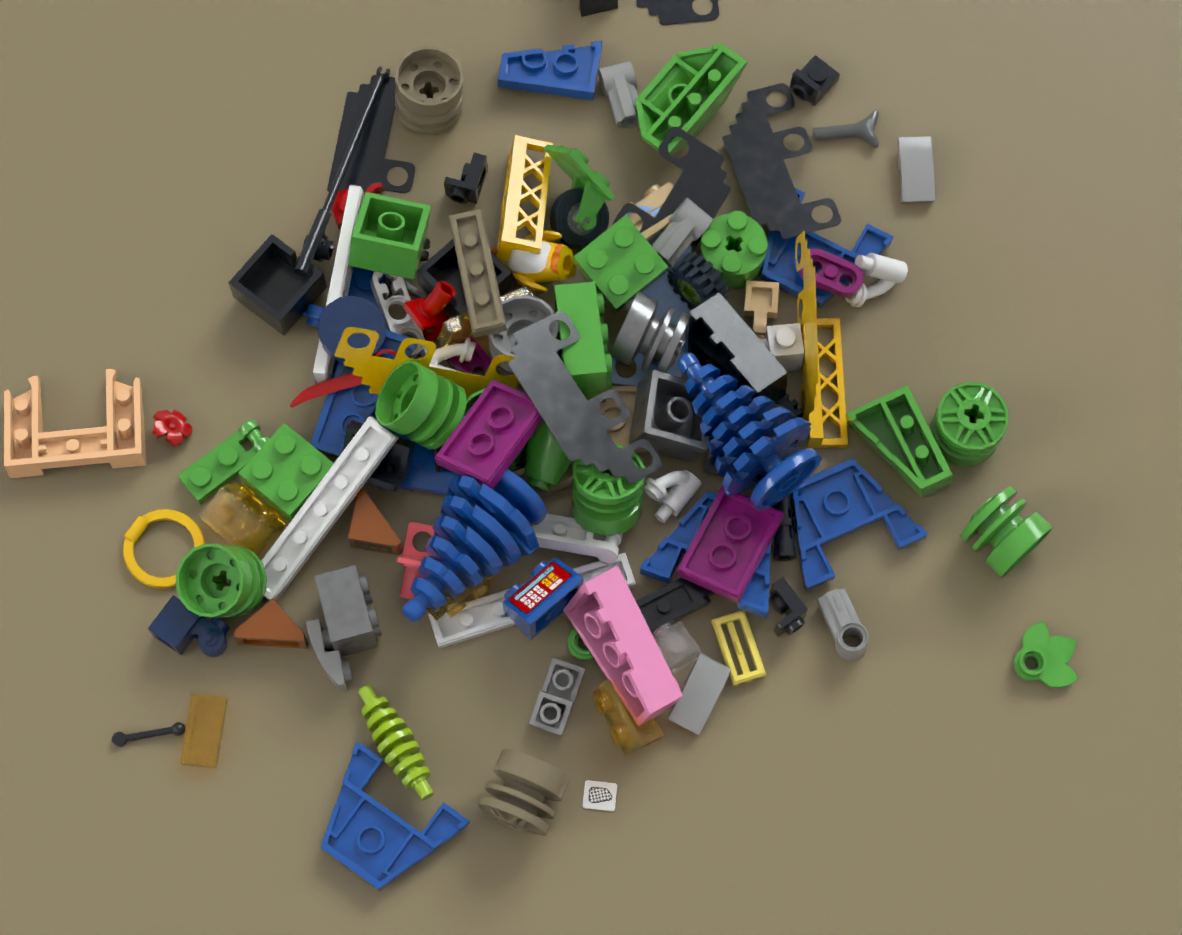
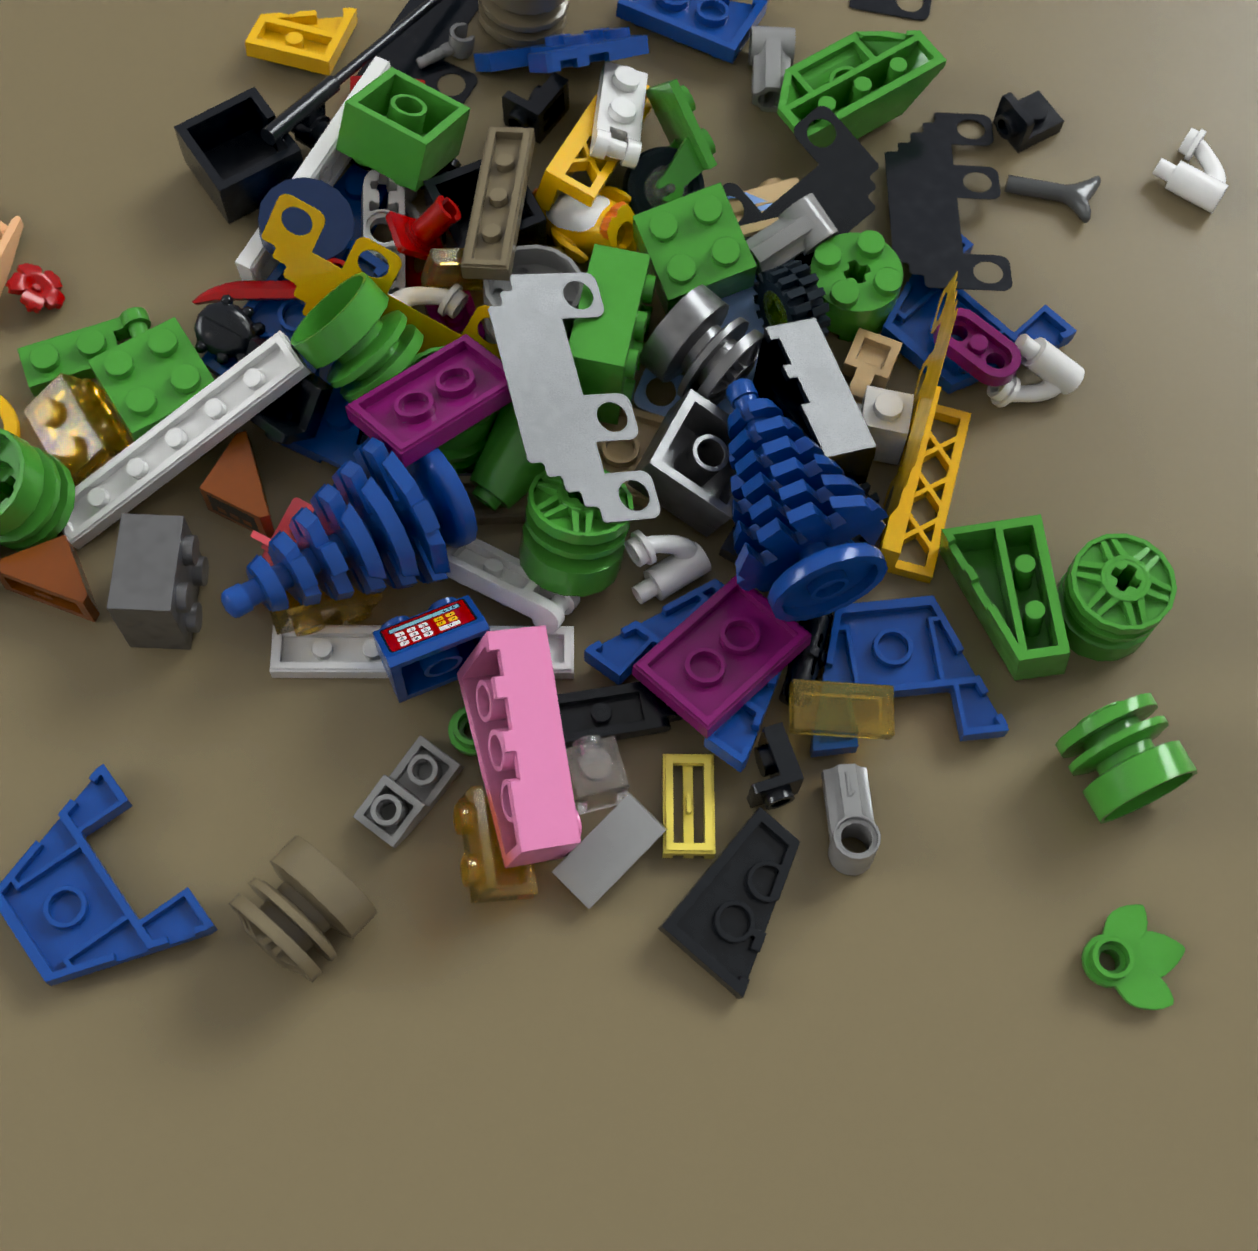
camera: 15 degrees right, 5 degrees down
(280, 176) = (301, 39): none -> yellow wing
(323, 421) = (226, 330): none -> black piece
(331, 662) = (113, 646): light grey slope -> none
(389, 148) = (457, 46): none -> light grey hand
(395, 742) = (156, 784): lime piece -> none
(482, 132) = (566, 51): none -> blue wing
(534, 176) = (619, 114): none -> white plate
(599, 795) = (418, 951): white sticker -> none
(787, 700) = (730, 905): none -> black wing
(817, 555) = (841, 709): none -> clear yellow tile
(916, 169) = (1131, 261): light grey slope -> none
(938, 95) = (1190, 183): none -> white plant

